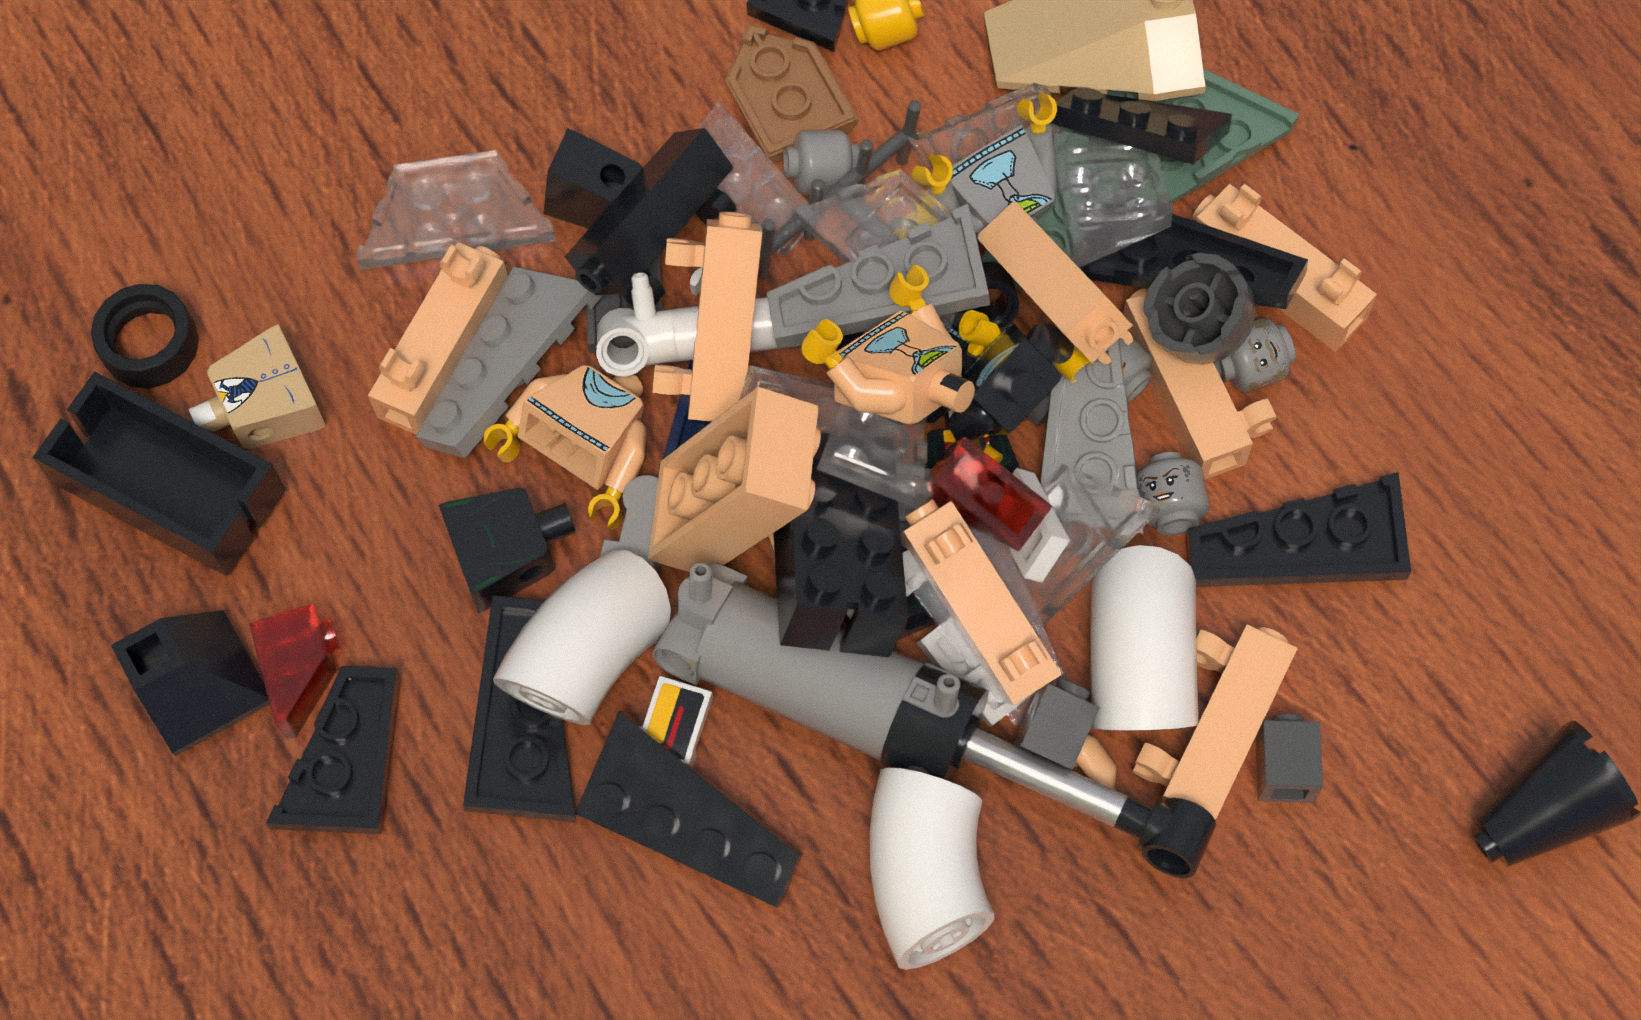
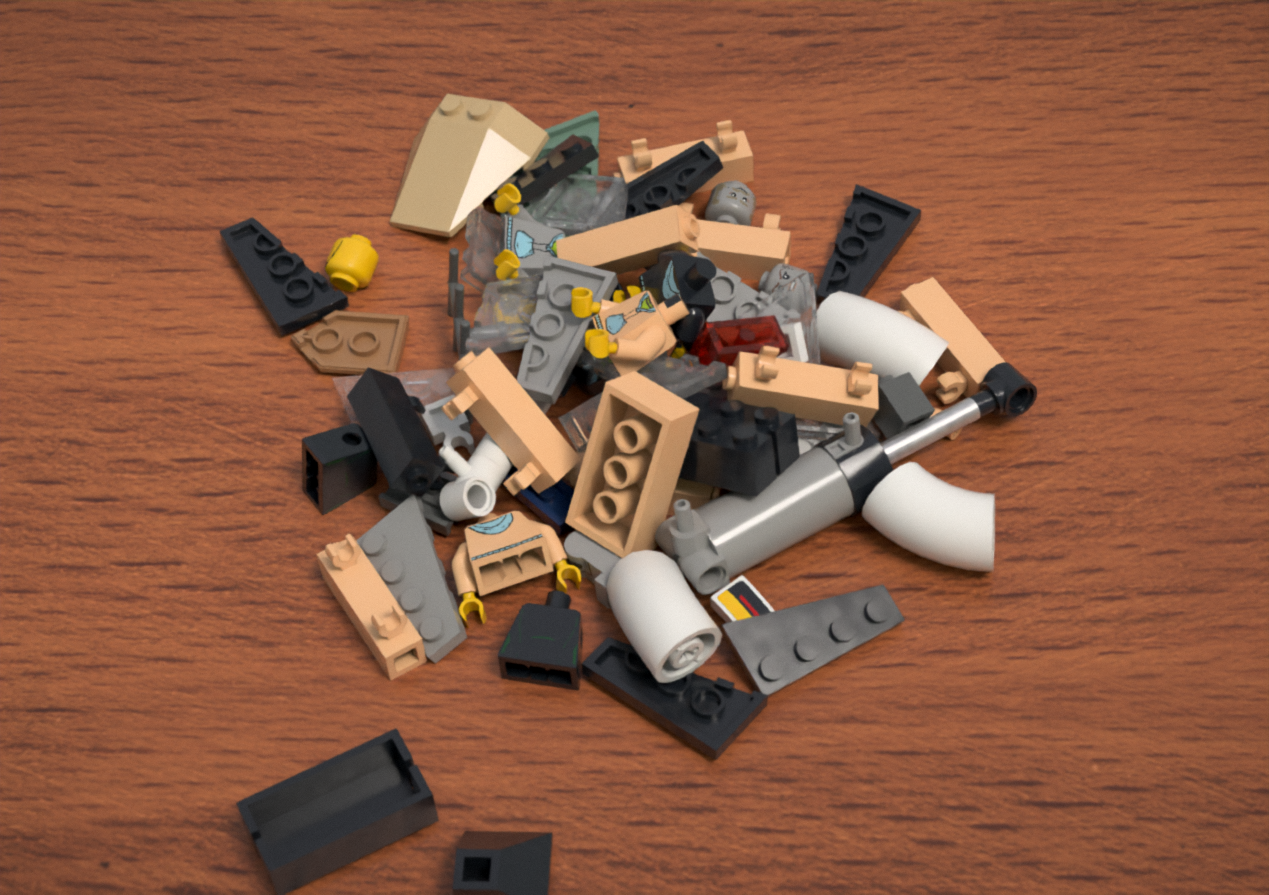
camera: 55 degrees left, 15 degrees down
(126, 306) = (204, 756): black tyre -> none
(259, 394) = (323, 723): tan torso -> none
(295, 663) = (539, 803): clear red slope -> none
(347, 760) = (629, 809): black wing -> none
(451, 202) = (280, 558): clear wing -> none
(821, 156) = (425, 343): light grey head -> none
(1200, 309) = (702, 190): dark grey cylinder -> none
(1289, 759) = (997, 321): dark grey brick -> none
(1555, 800) = (1104, 213): black cone -> none

